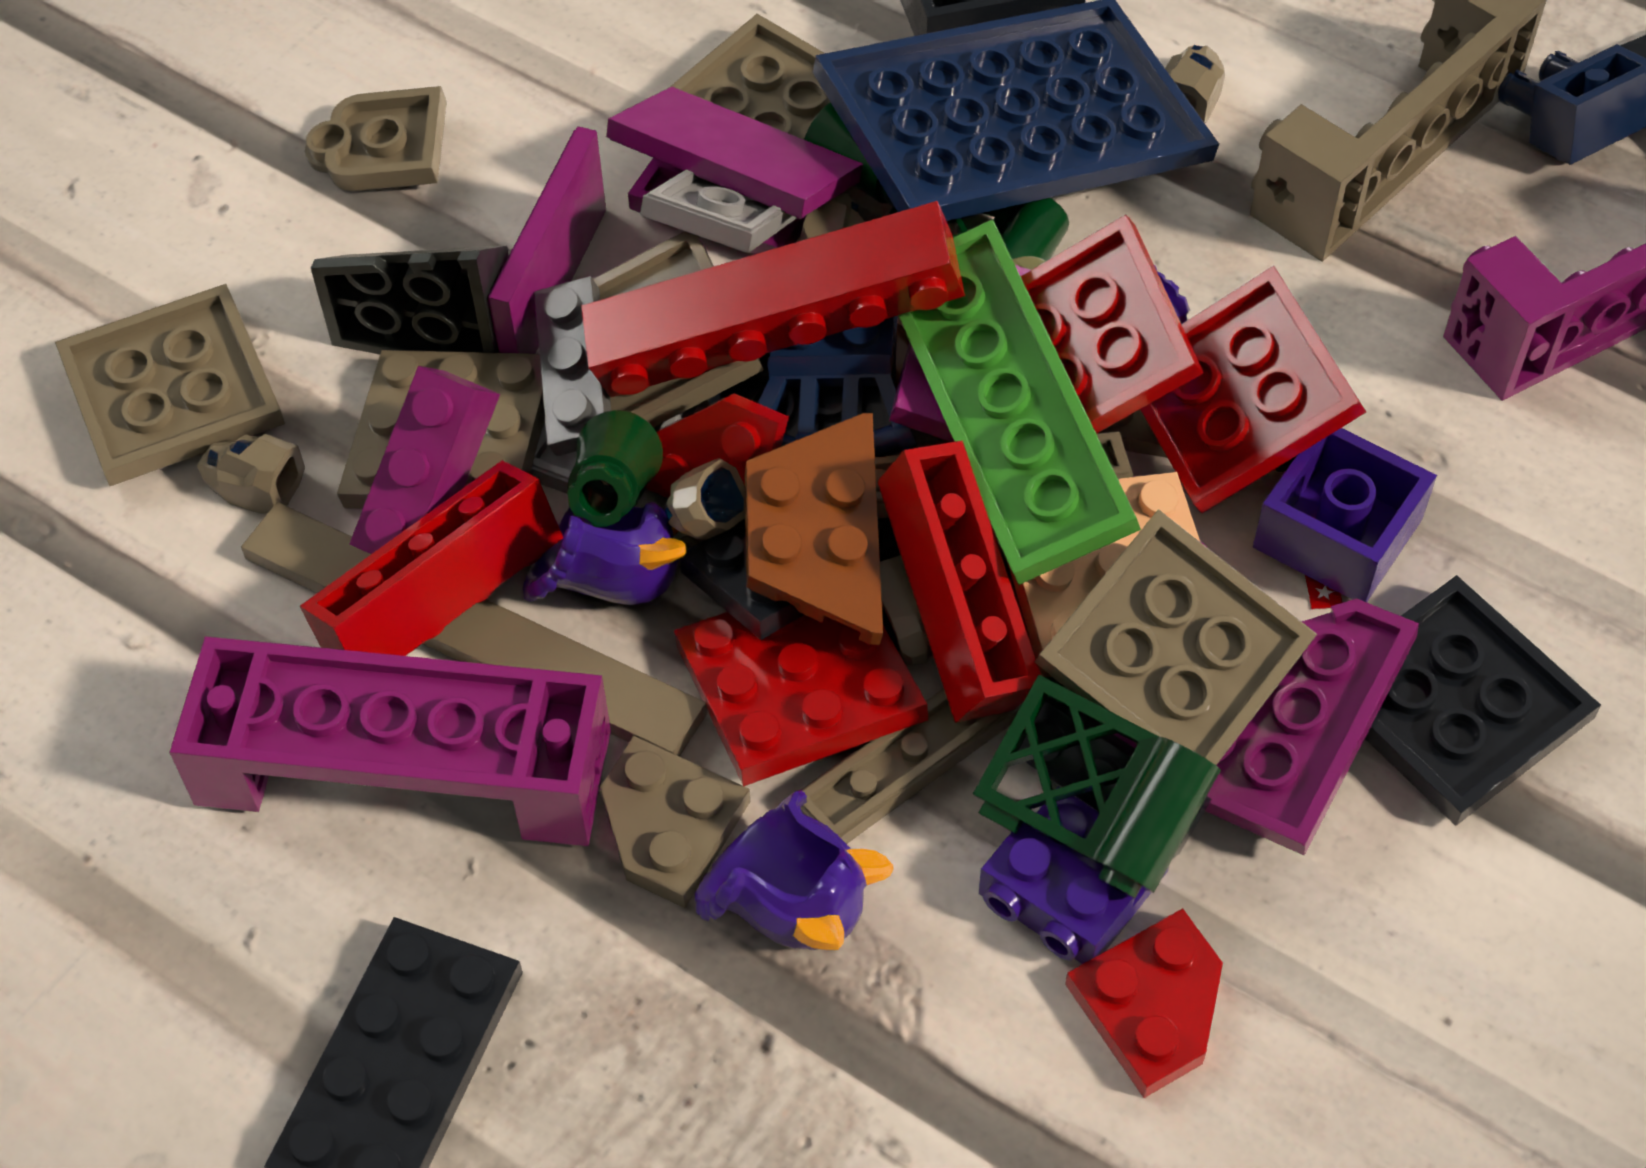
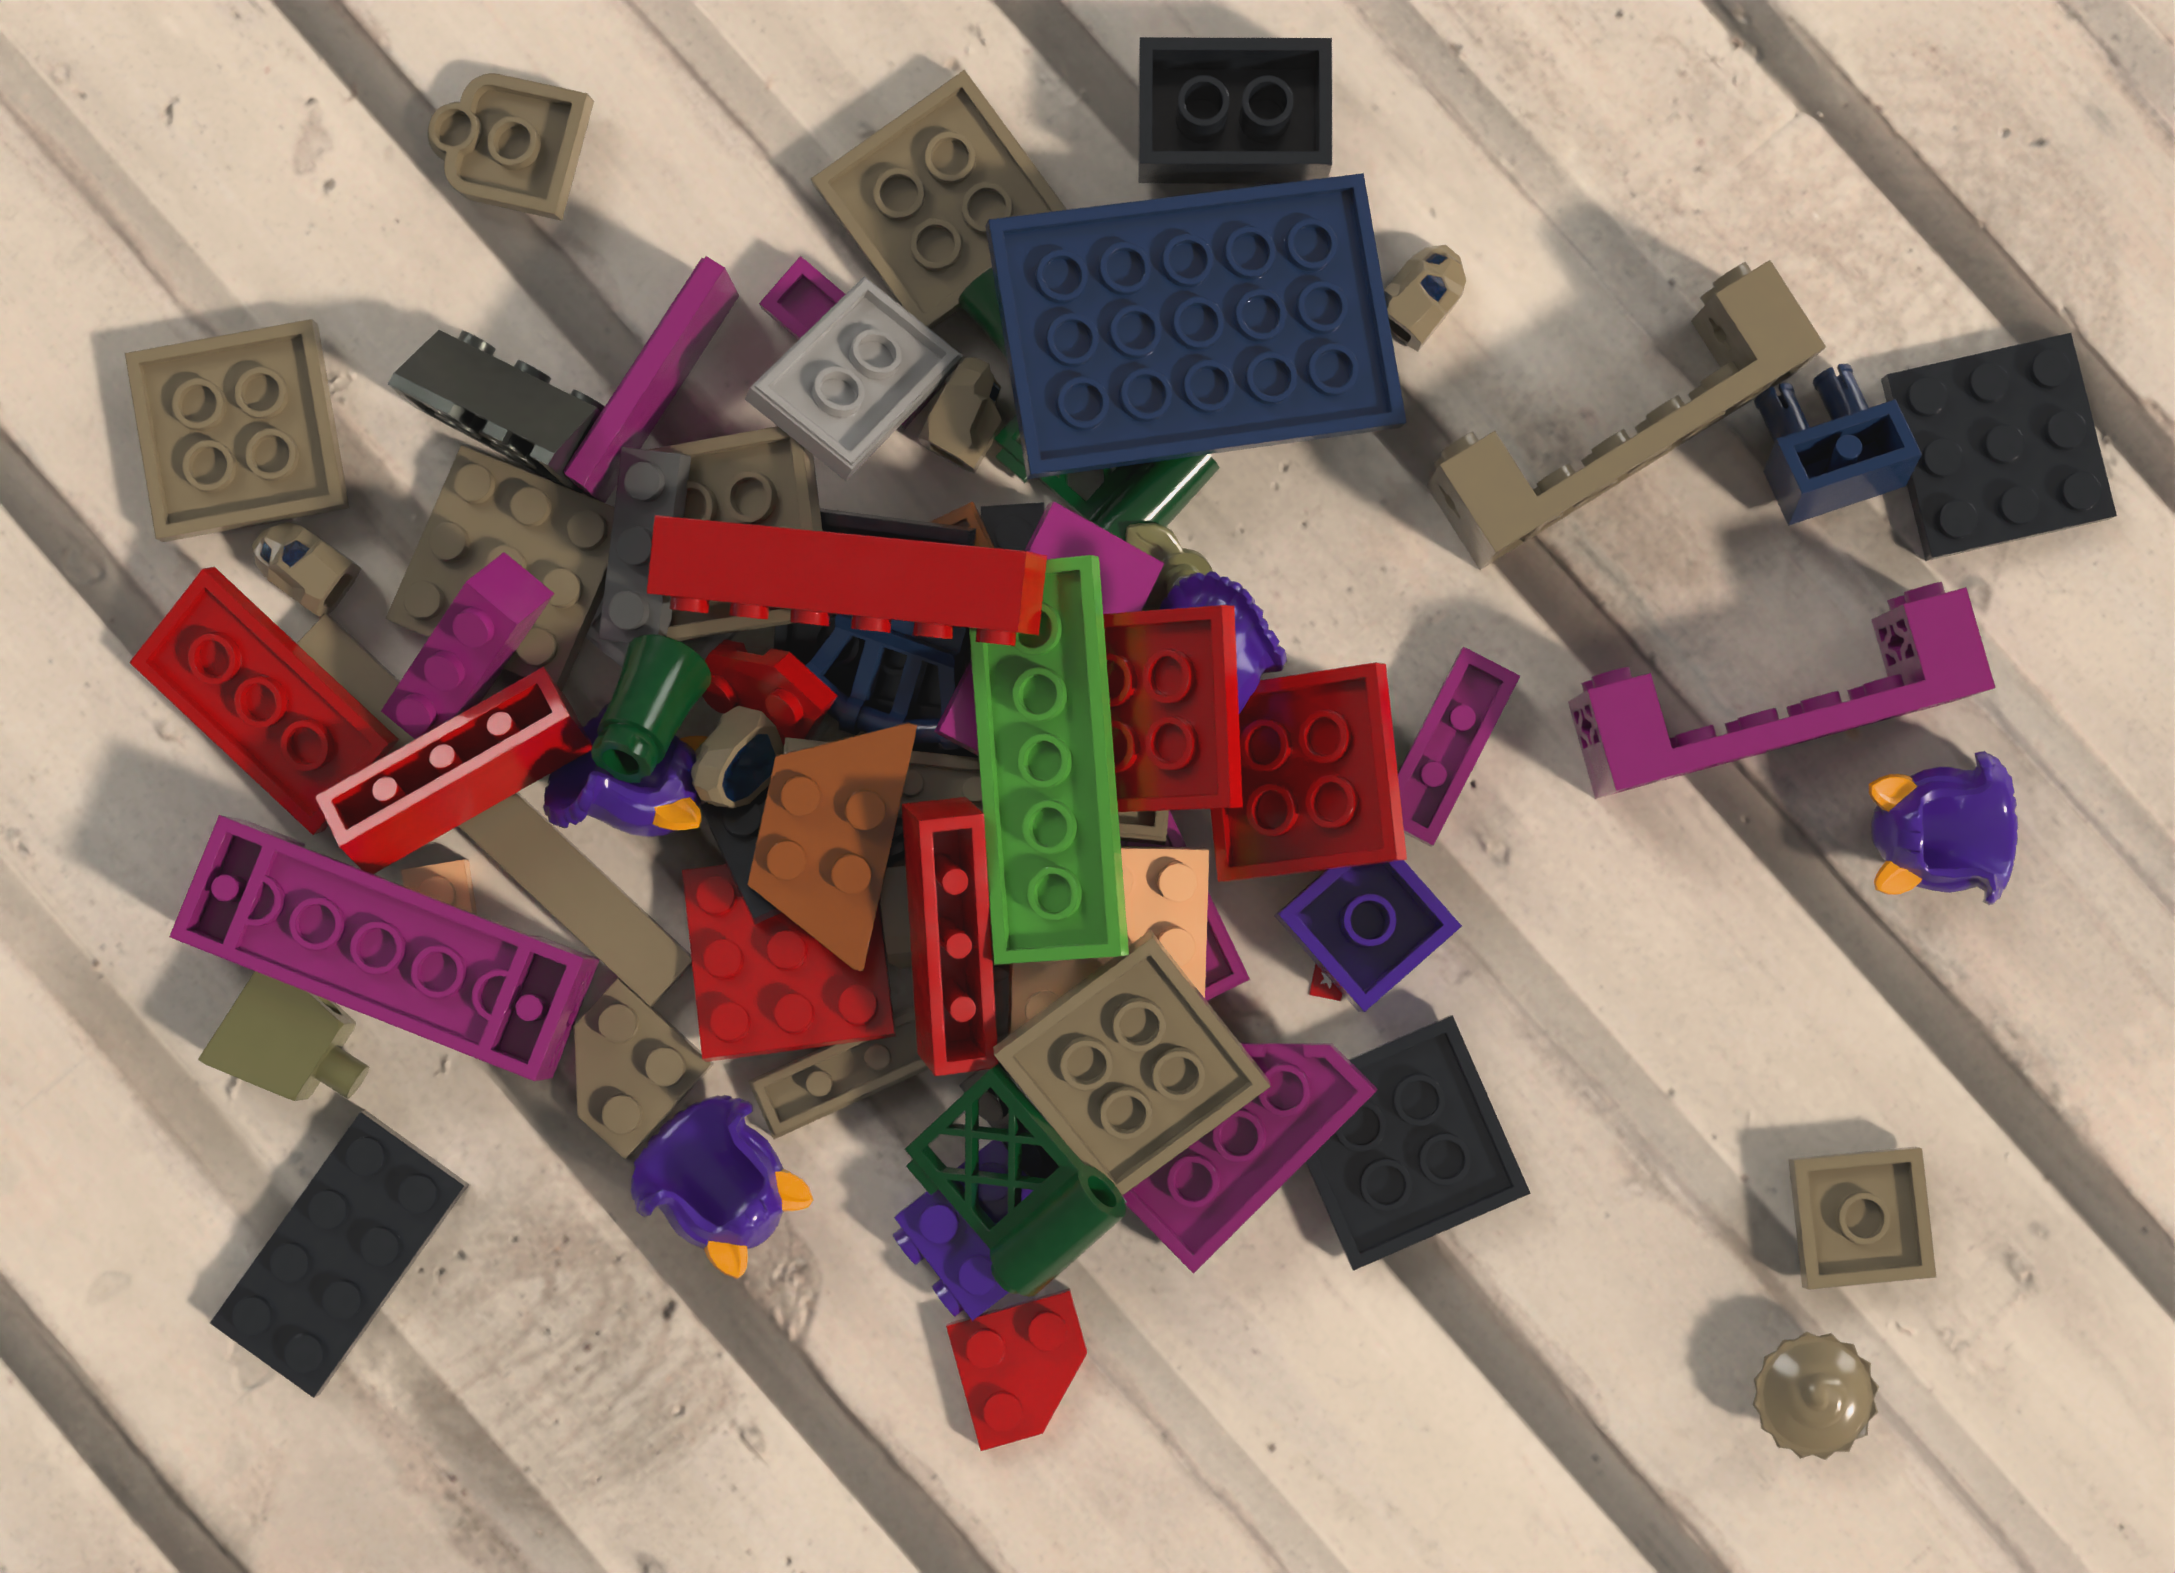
camera: 15 degrees right, 30 degrees up
(216, 566) = (260, 696): none -> red plate
(300, 862) = (285, 1041): none -> olive torso
(734, 151) = (876, 302): magenta tile -> none
(1361, 348) = (1451, 742): none -> magenta plate

